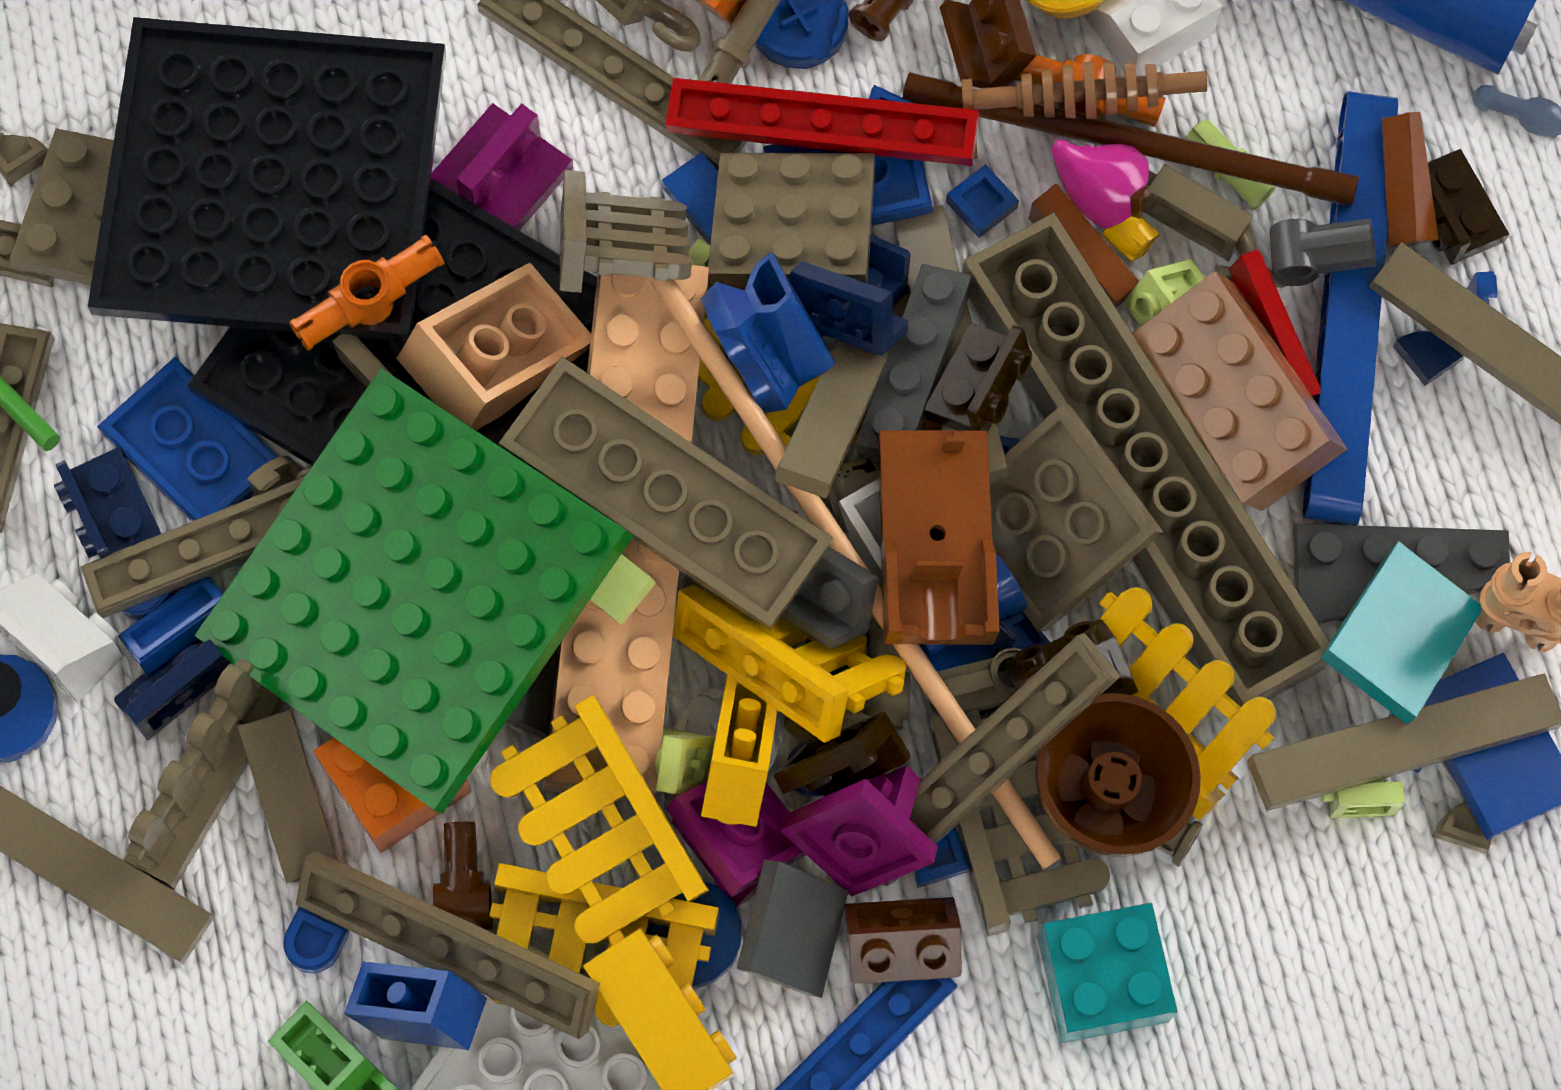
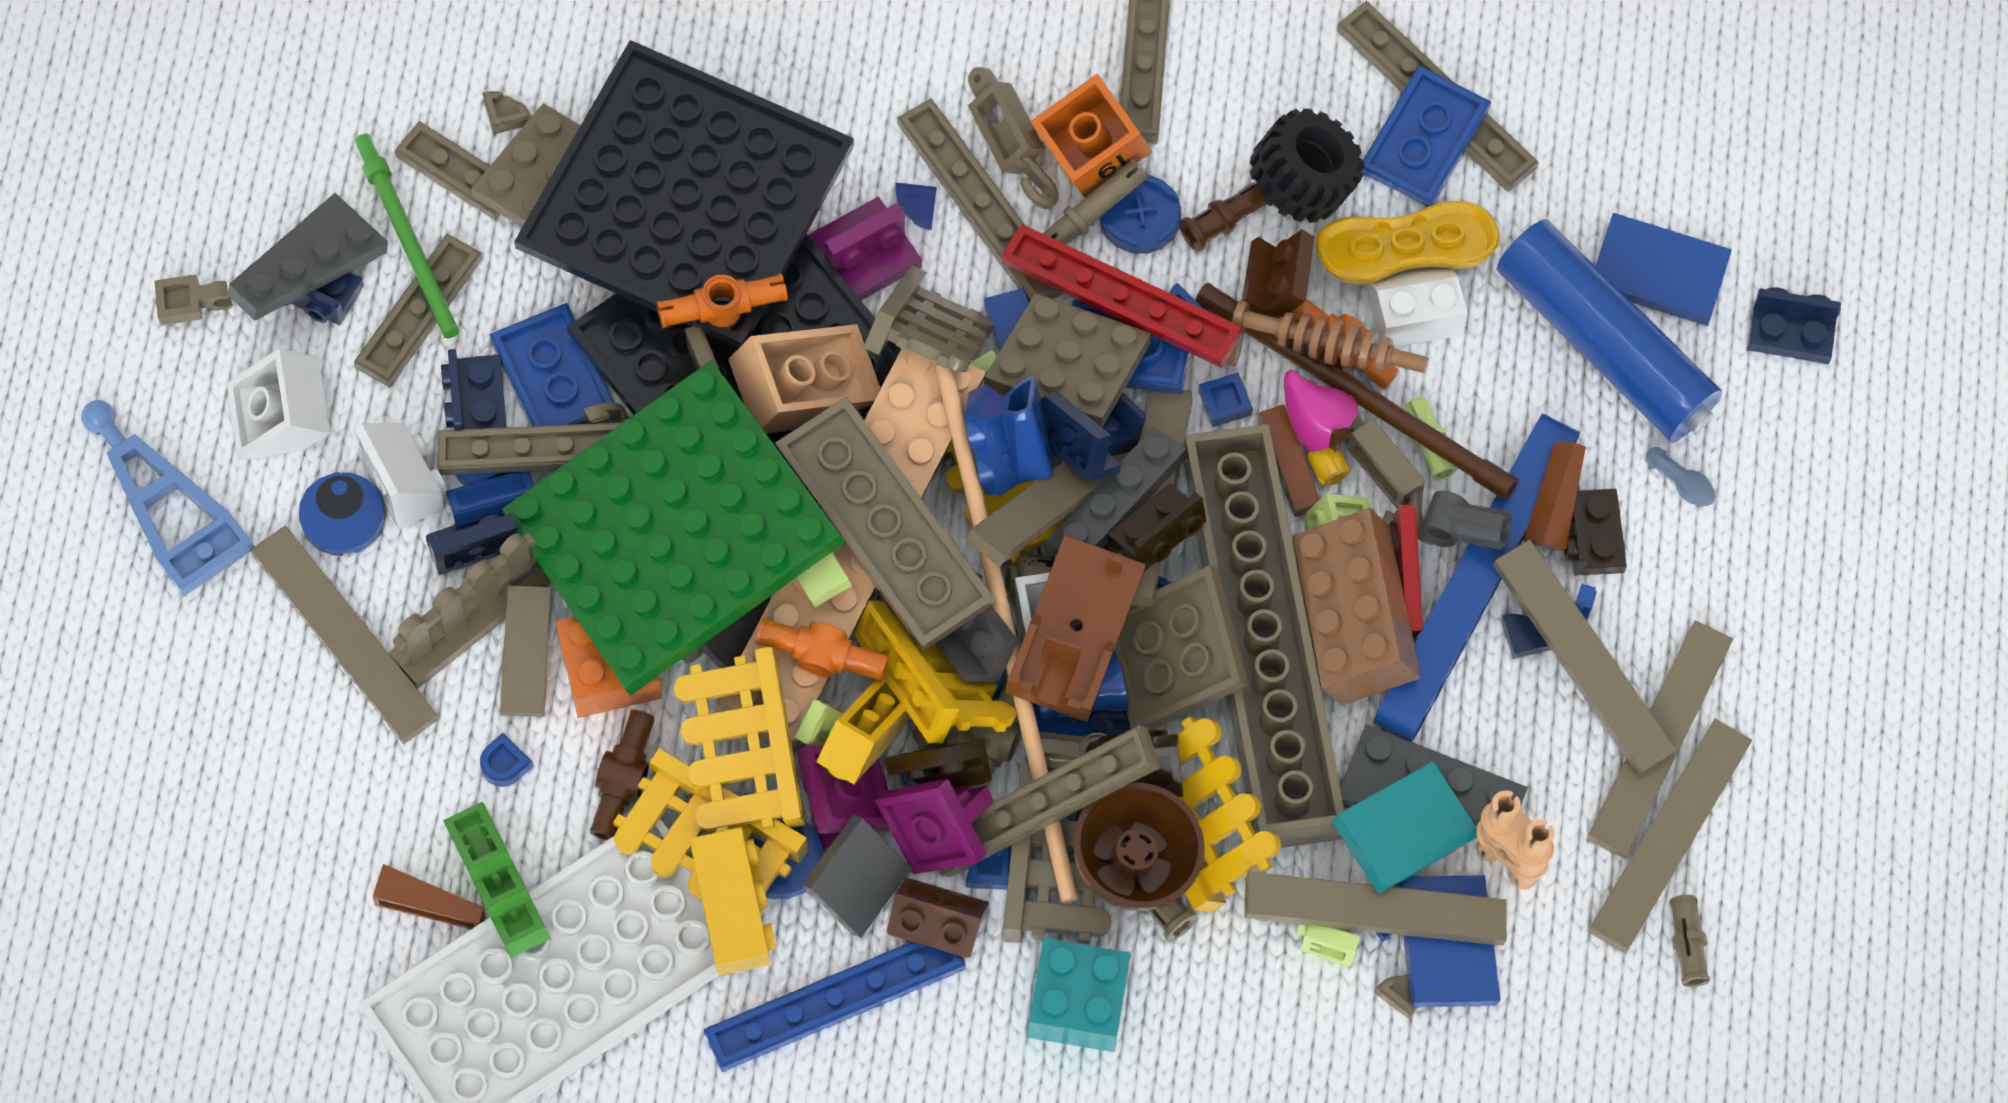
camera: 20 degrees right, 5 degrees down
(415, 1005) = (559, 828): blue brick -> none
(447, 943) = (598, 793): dark tan tile -> none
(540, 94) = (917, 203): none -> clear blue tile
(650, 672) = (822, 649): none -> orange pin

